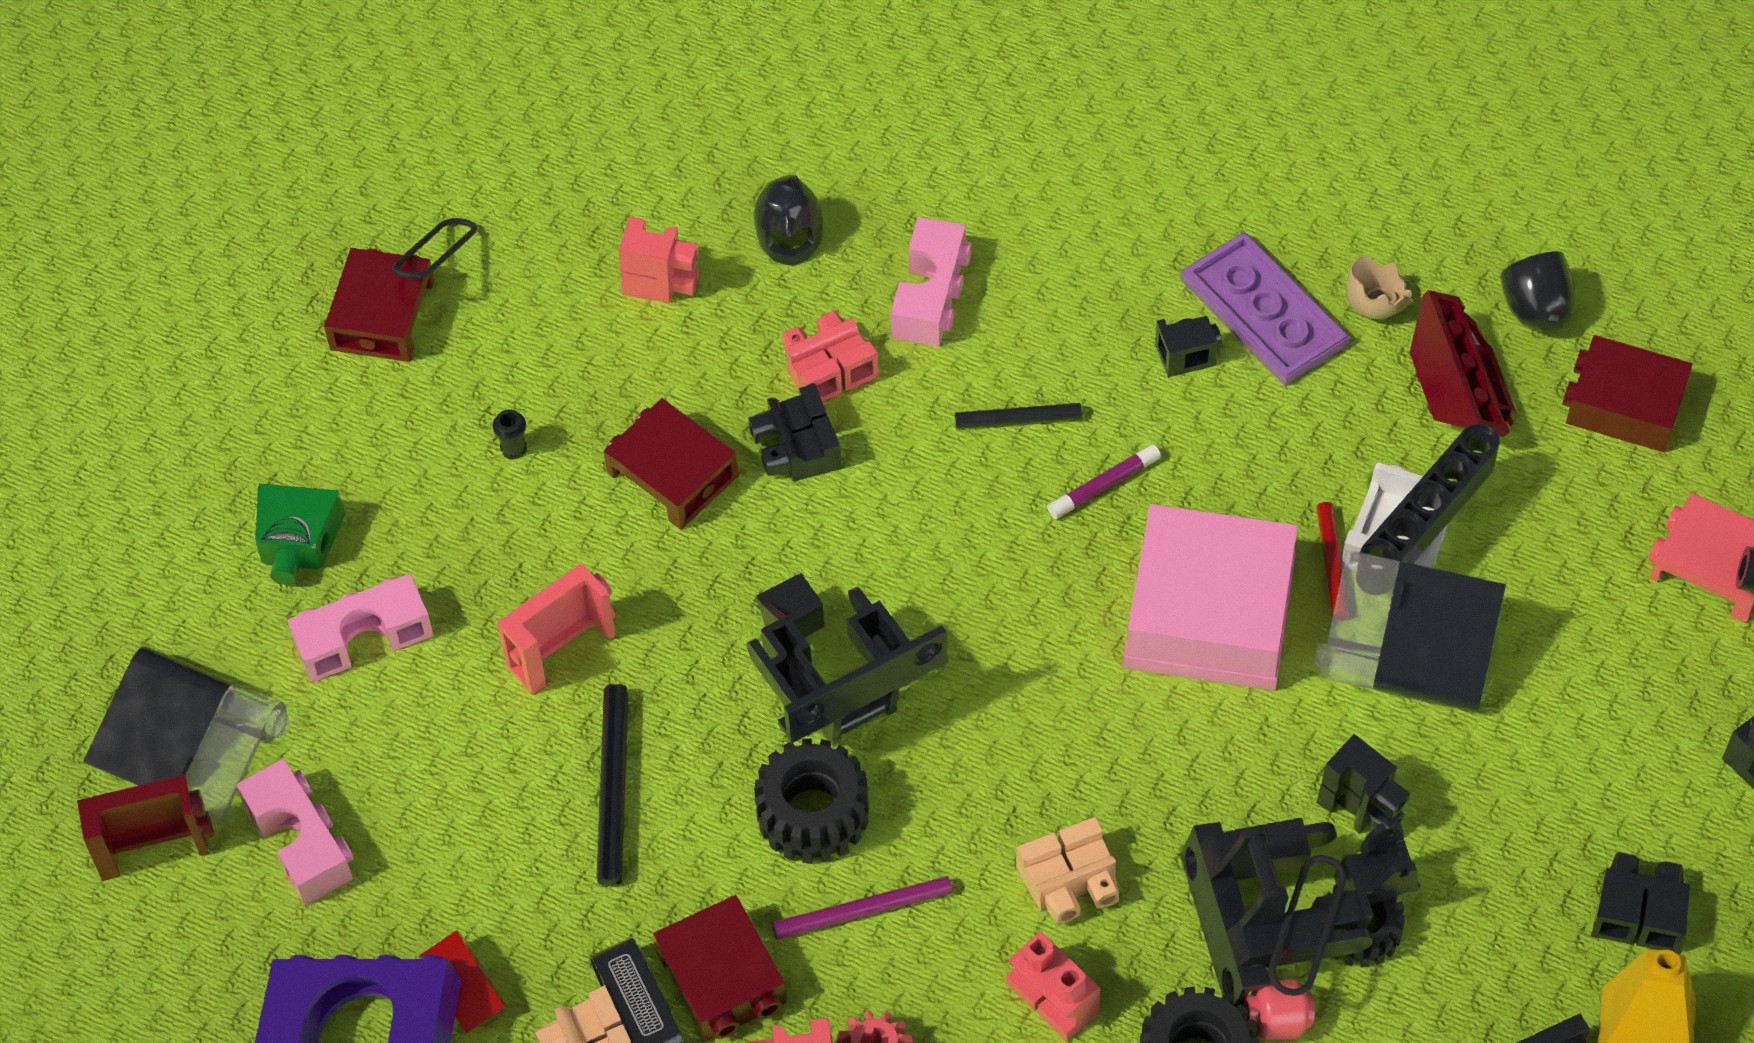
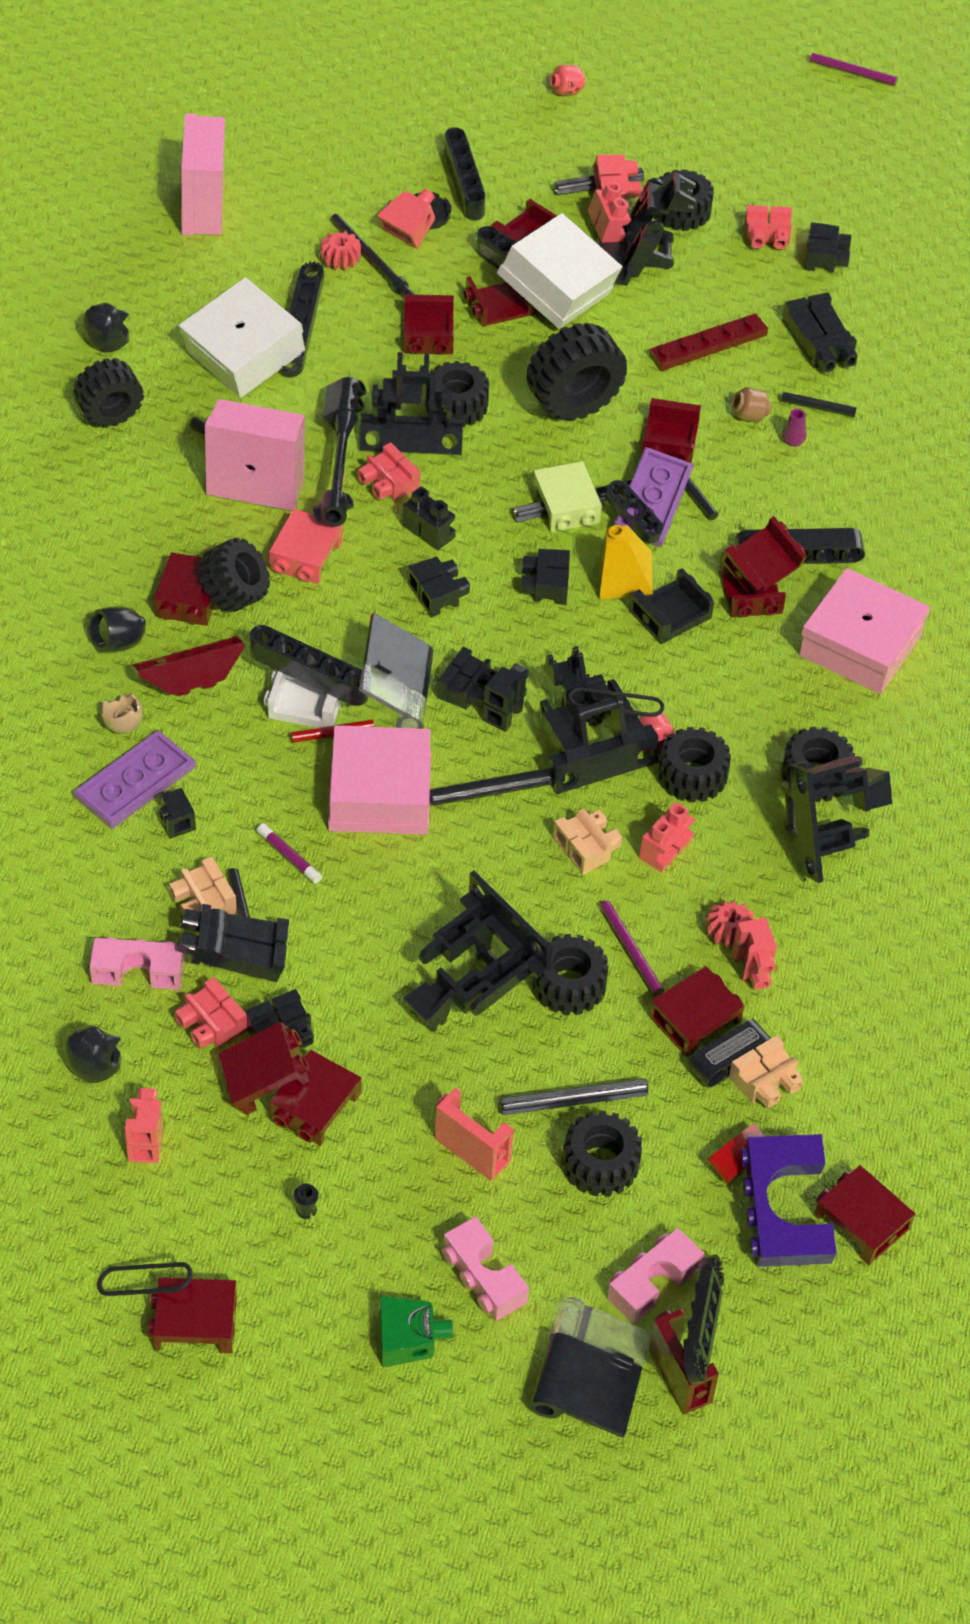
camera: 105 degrees left, 5 degrees down
(180, 847) = (704, 1319): none -> black plate
(491, 761) = (598, 1174): none -> black tyre
(716, 396) = (263, 1065): none -> dark red panel
(929, 352) = (235, 942): none -> black hips
(1039, 366) = (204, 886): none -> light nougat hips
(1194, 746) = (492, 786): none -> black axle
(1422, 751) = (464, 680): none -> black hips
(1619, 467) = (234, 574): none -> black tyre
(1626, 731) = (435, 585): none -> black hips

